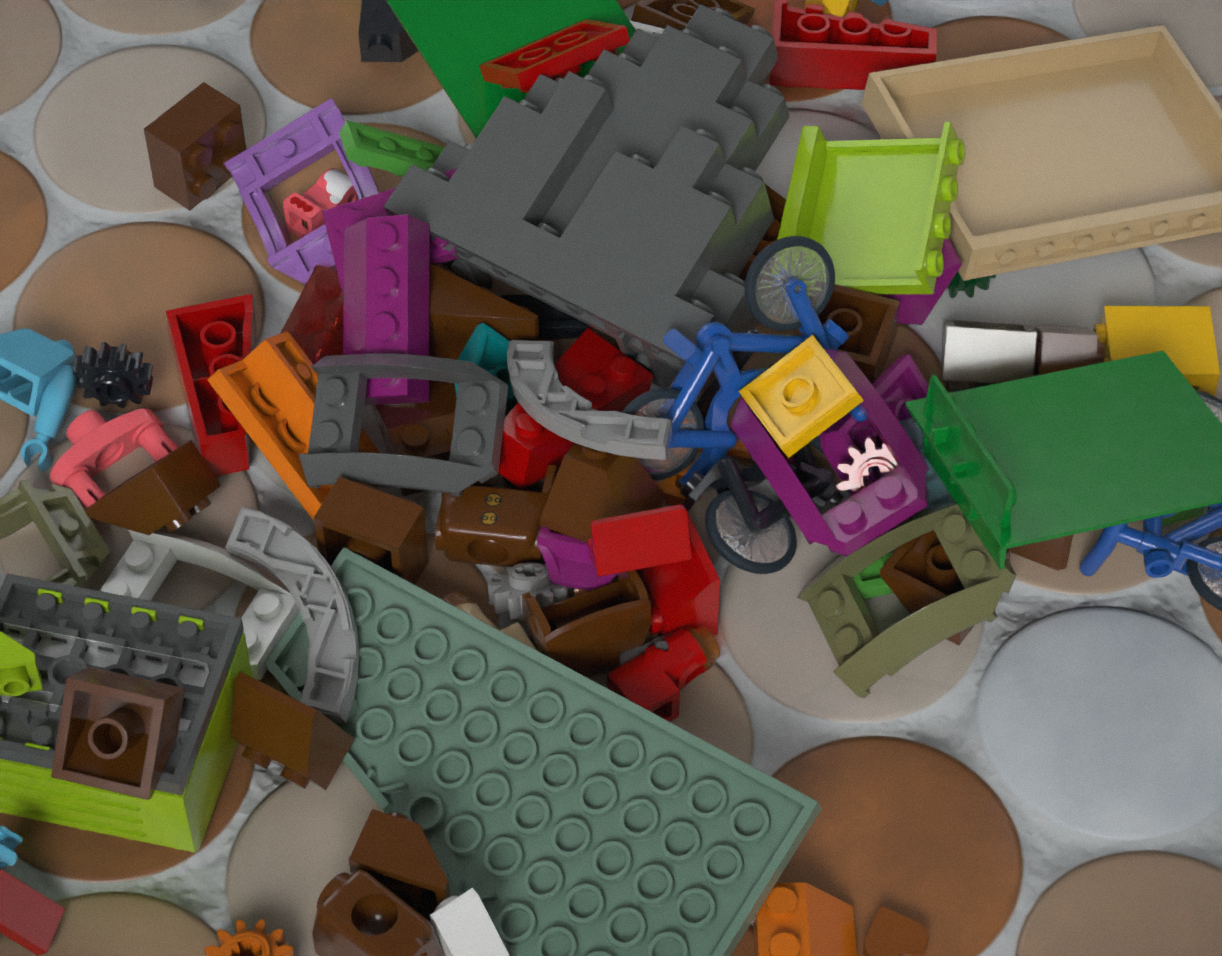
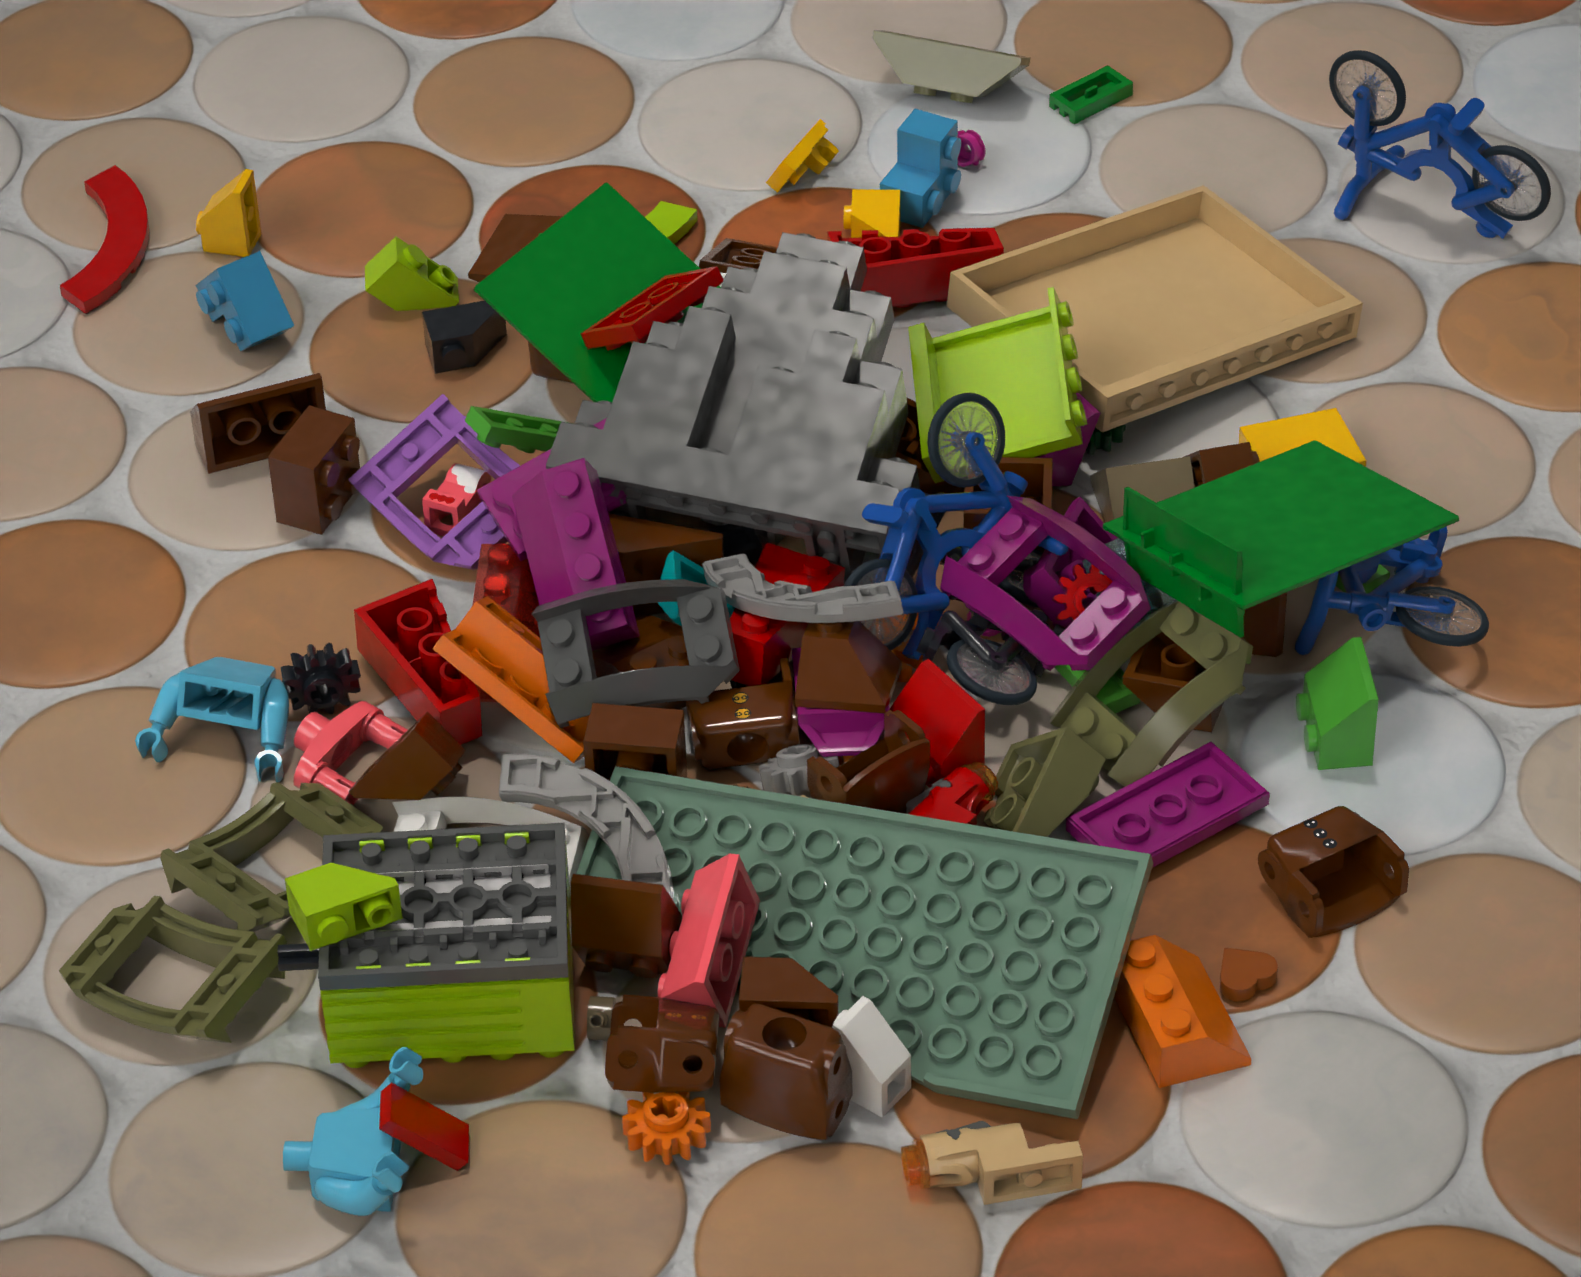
camera: 15 degrees left, 10 degrees down
(116, 731) = (495, 930): reddish brown slope -> none
(154, 82) = (251, 423): none -> reddish brown slope
(232, 820) = (599, 1017): none -> dark tan piece
(269, 889) = (669, 1051): none -> reddish brown piece
(360, 773) = (712, 937): none -> coral slope
(639, 540) = (903, 685): red panel -> none
(760, 670) = (1043, 782): none -> olive wedge
(800, 396) = (1005, 538): yellow tile -> none
(880, 728) = (1172, 806): none -> magenta piece
(1022, 846) = (1333, 871): none -> reddish brown piece
(1092, 657) = (1340, 708): none -> bright green slope

